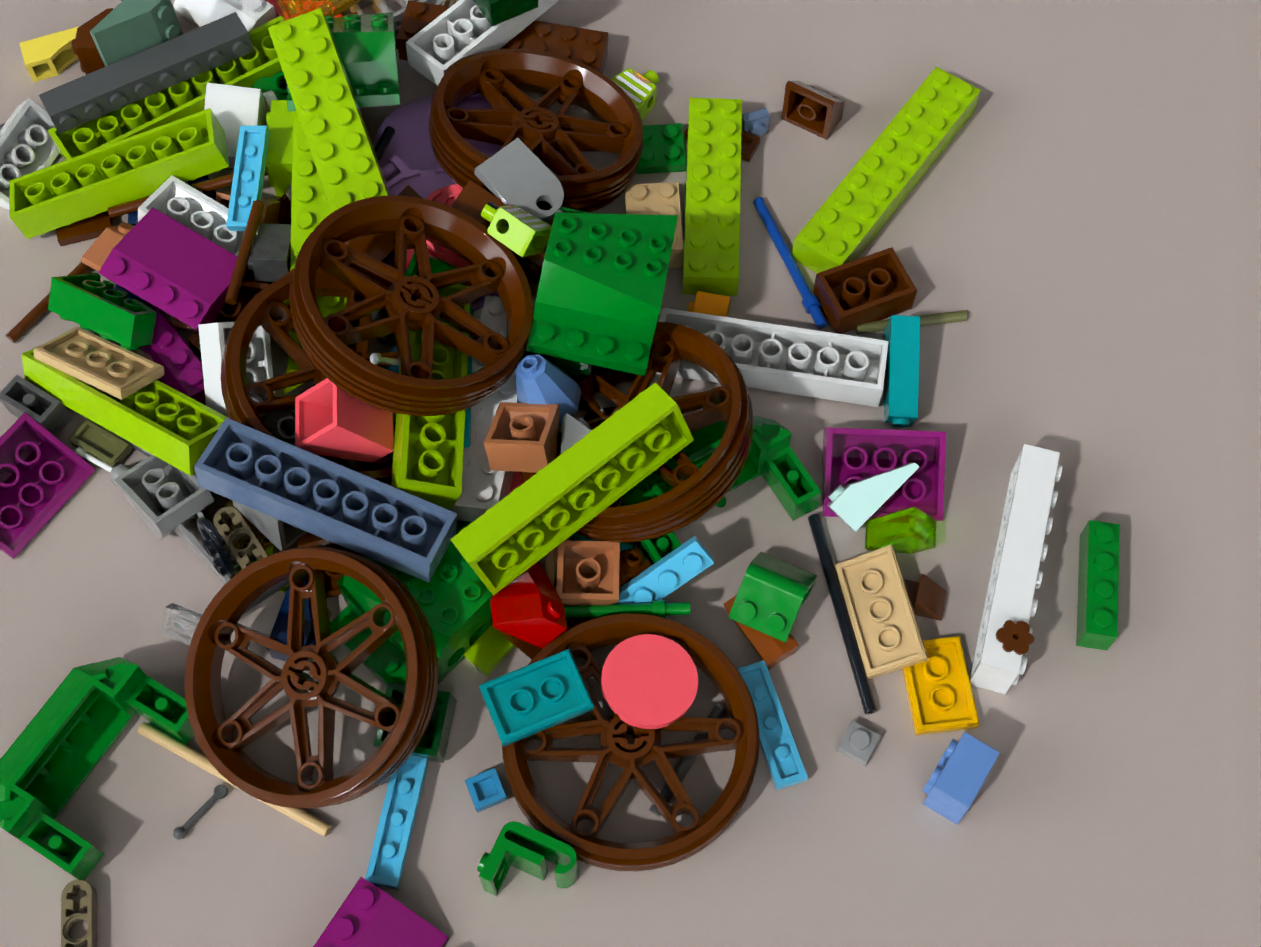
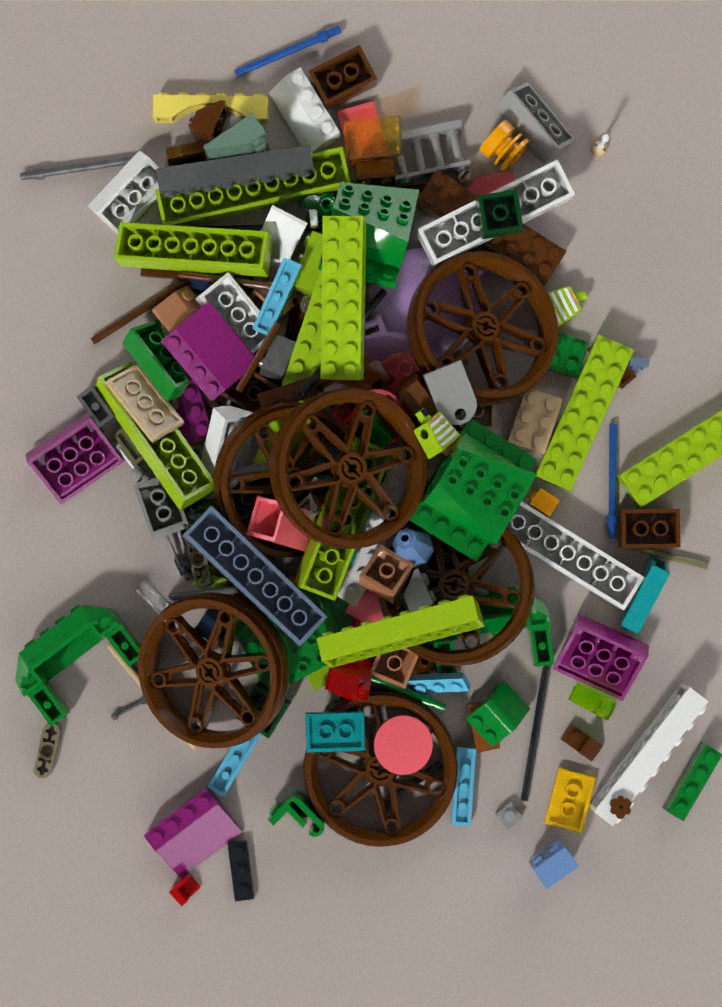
camera: 25 degrees right, 25 degrees up
(486, 790) = (290, 760): dark azure plate -> none
(811, 109) = (683, 367): reddish brown slope -> none
(862, 498) = (583, 673): light aqua slope -> none
(881, 612) = (557, 746): tan tile -> none

